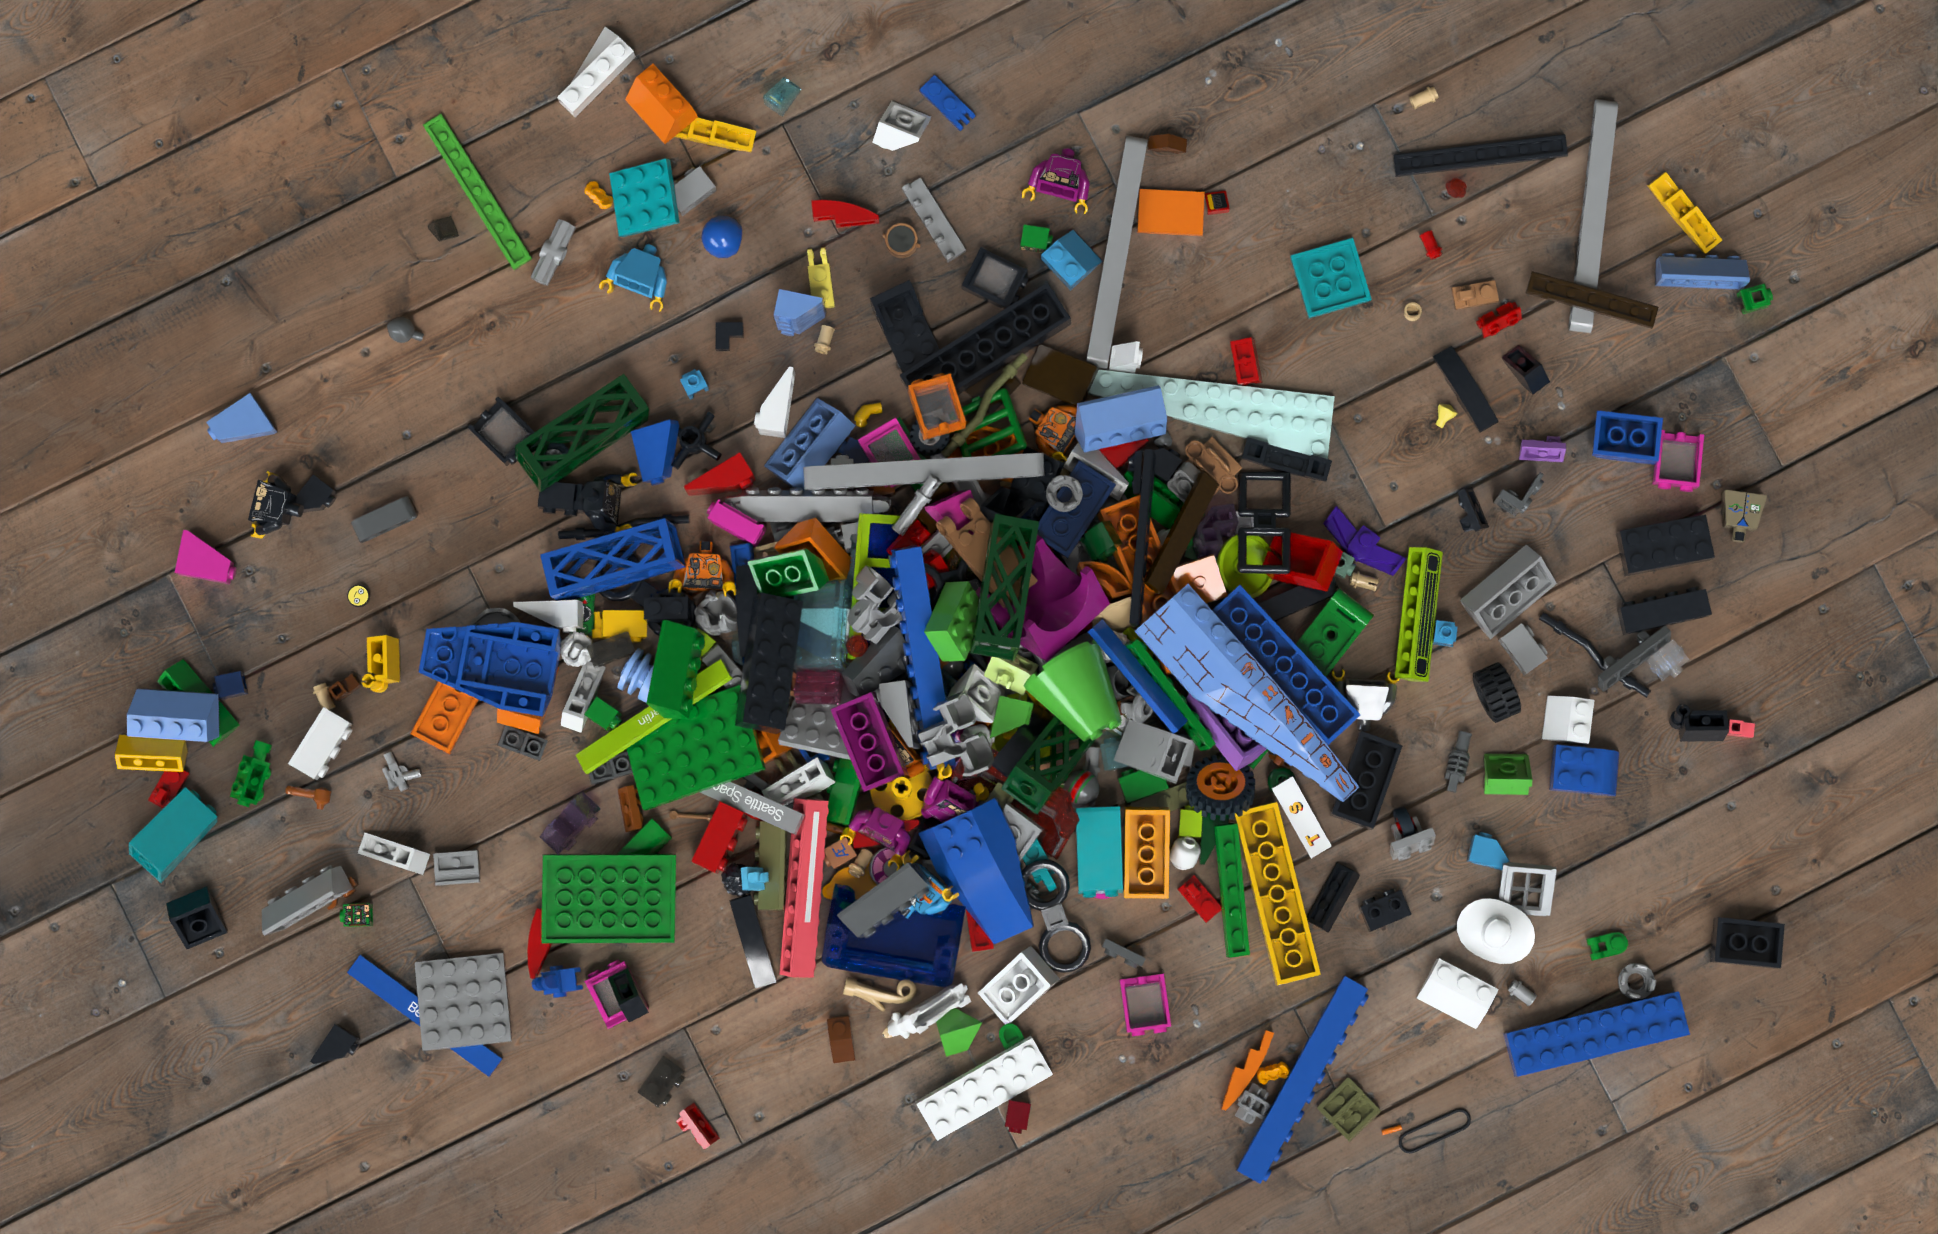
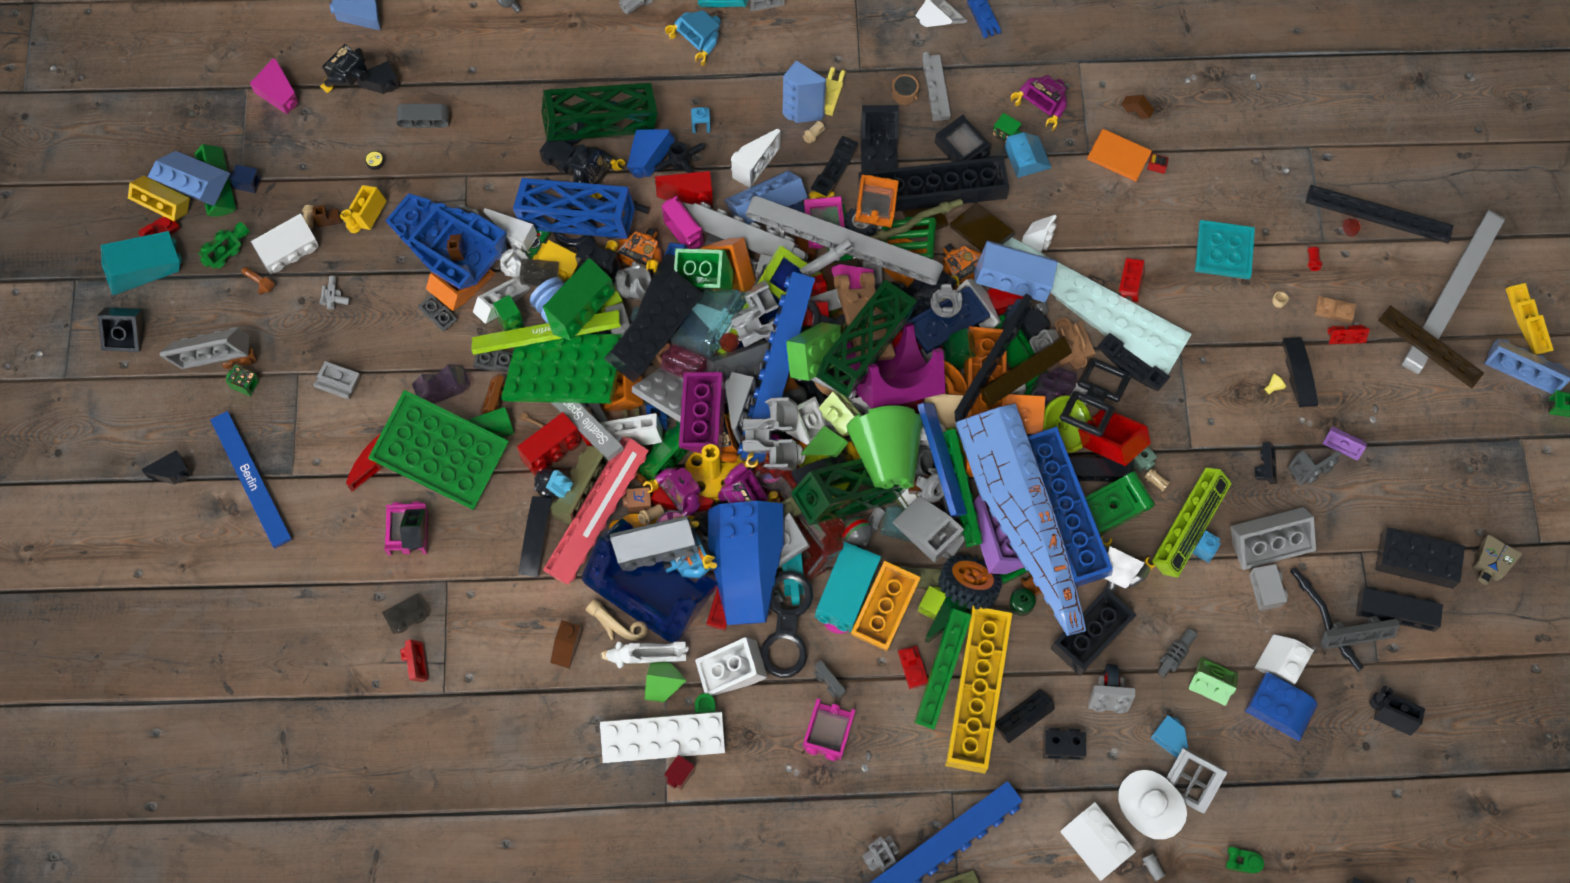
camera: 20 degrees right, 15 degrees down
(393, 853) = (296, 349): white slope -> none
(444, 717) = (391, 269): orange tile -> none
(463, 1002) = (284, 480): light grey plate -> none
(501, 430) = (534, 89): clear window -> none
(511, 668) = (455, 247): none -> reddish brown piece
(557, 981) = (365, 495): blue hinge -> none
(722, 236) = (772, 29): blue helmet -> none
(725, 331) = (743, 97): black piece -> none
(843, 213) = (870, 54): red slope -> none
(867, 373) = (835, 167): none -> black slope
(1116, 251) = (1065, 162): light grey beam -> none
(1140, 785) = (905, 554): green brick -> none
(1184, 853) = (917, 623): white head -> none
(1241, 1077) = (883, 827): orange slope -> none
(1272, 1072) = (910, 836): light orange piece -> none
(1301, 817) = (1026, 637): white sticker -> none
(1362, 544) = (1168, 453): dark purple plate -> none
(1424, 97) = (1351, 155): tan pin -> none
(1496, 692) = (1233, 608): black tyre -> none
(1526, 369) = (1356, 378): black slope -> none
(1627, 437) = (1420, 461): blue brick -> none
(1668, 661) = (1388, 649): clear head -> none
(1679, 461) = (1454, 499): window -> none
(1741, 729) = (1429, 731): coral piece -> none

